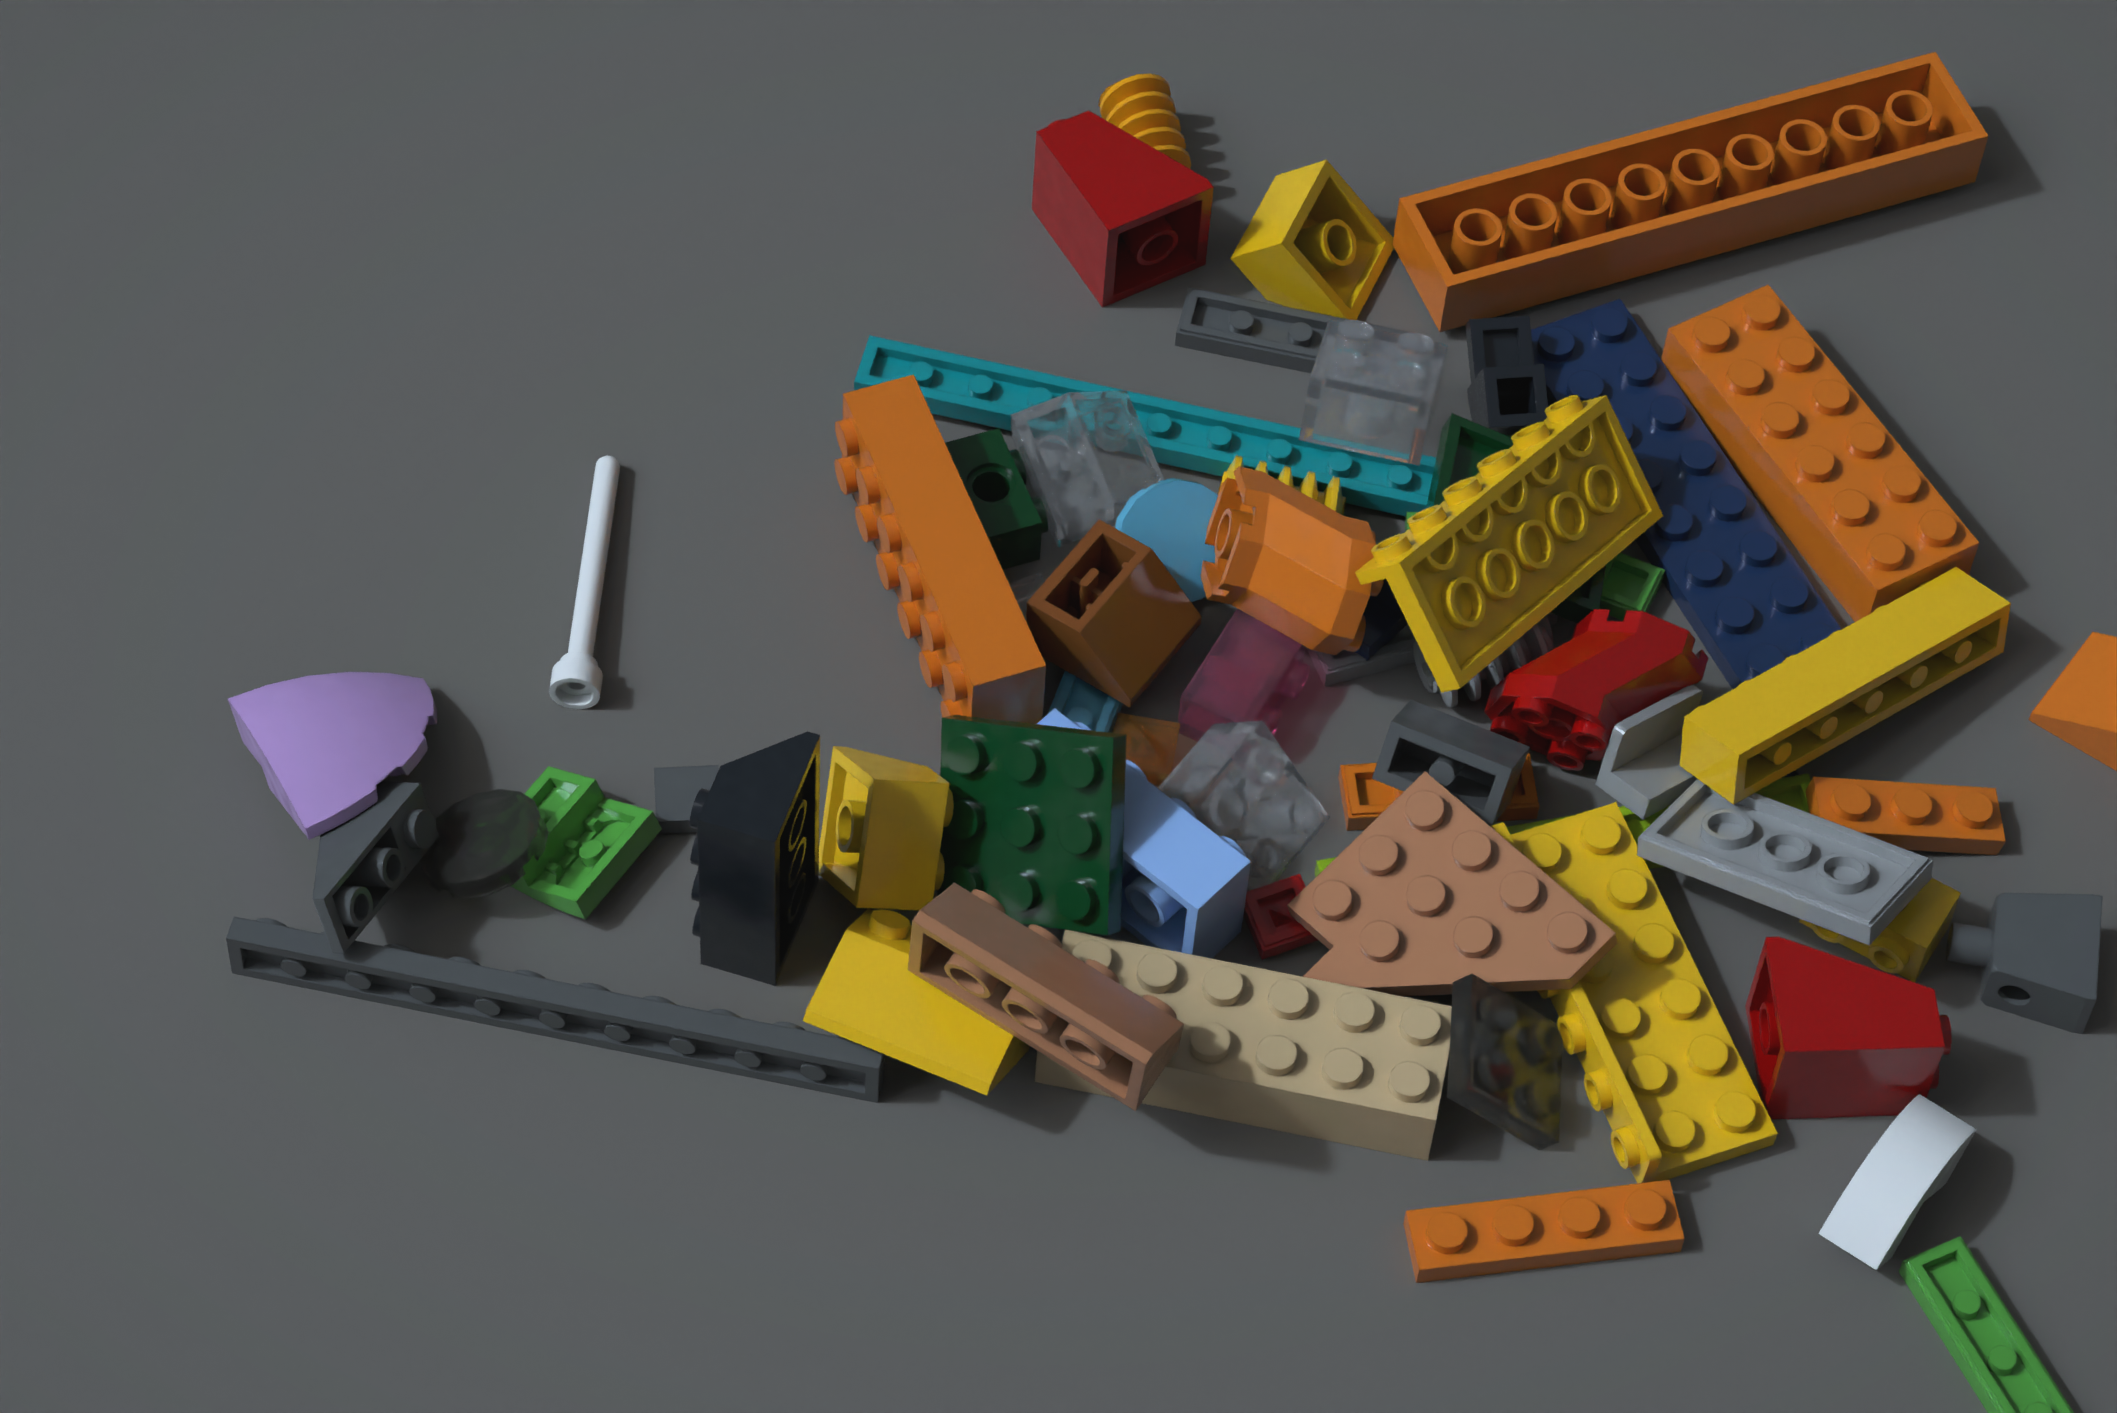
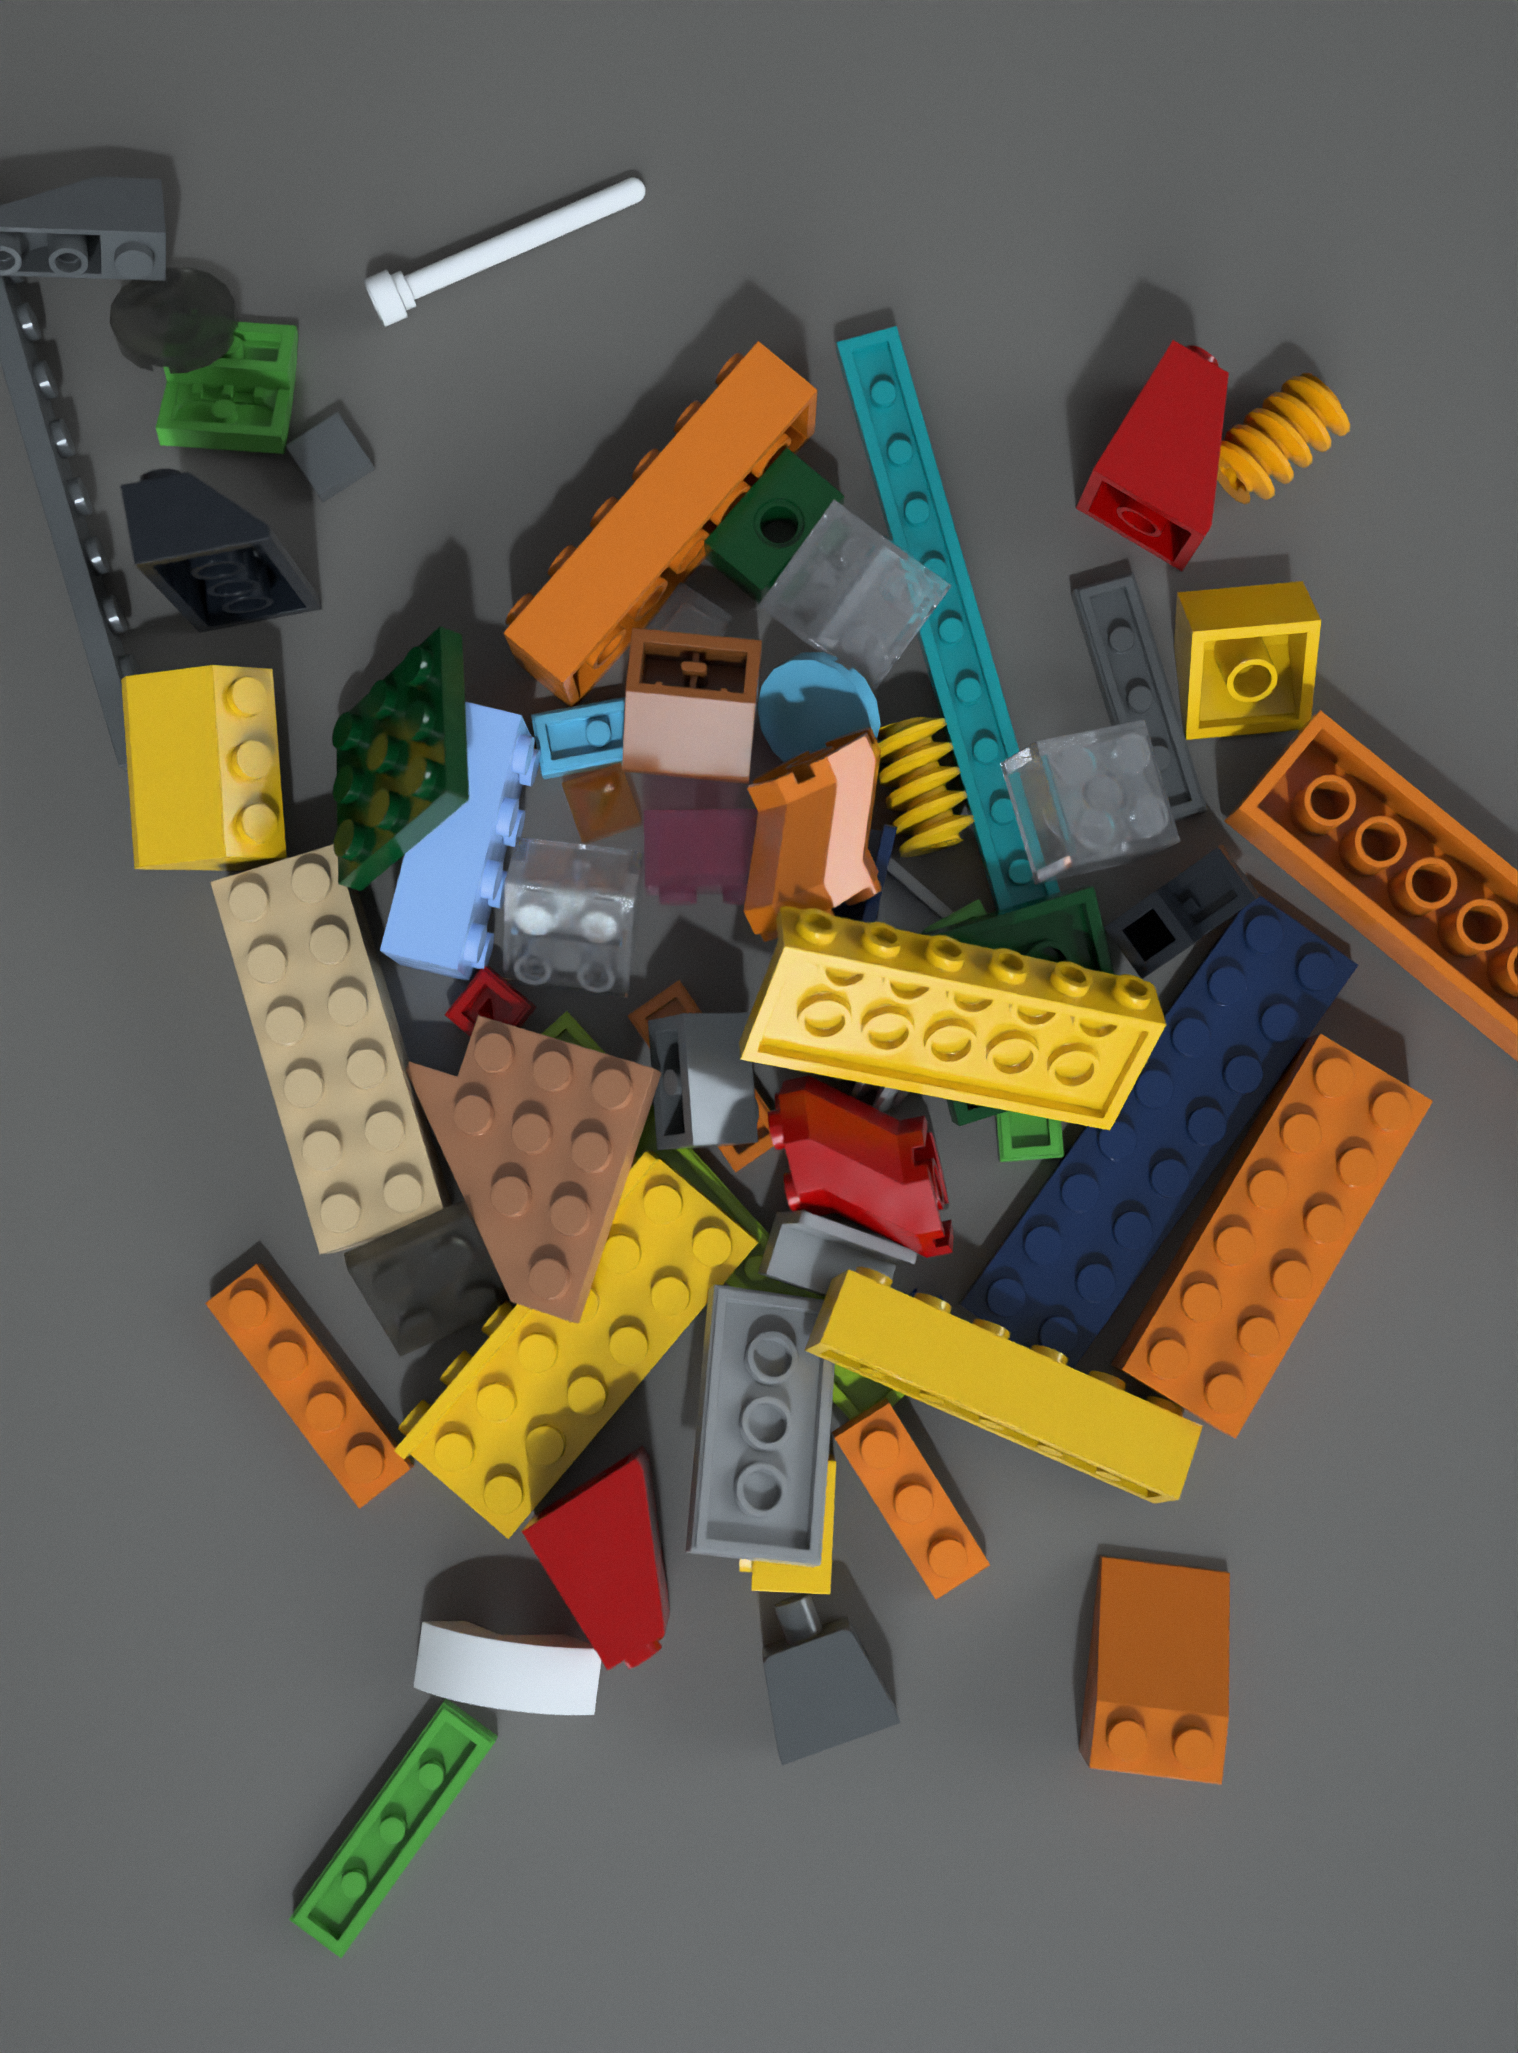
camera: 65 degrees right, 30 degrees up
(334, 740) = (188, 138): lavender brick -> none
(883, 830) = (340, 642): yellow slope -> none
(1043, 993) = (201, 867): nougat slope -> none

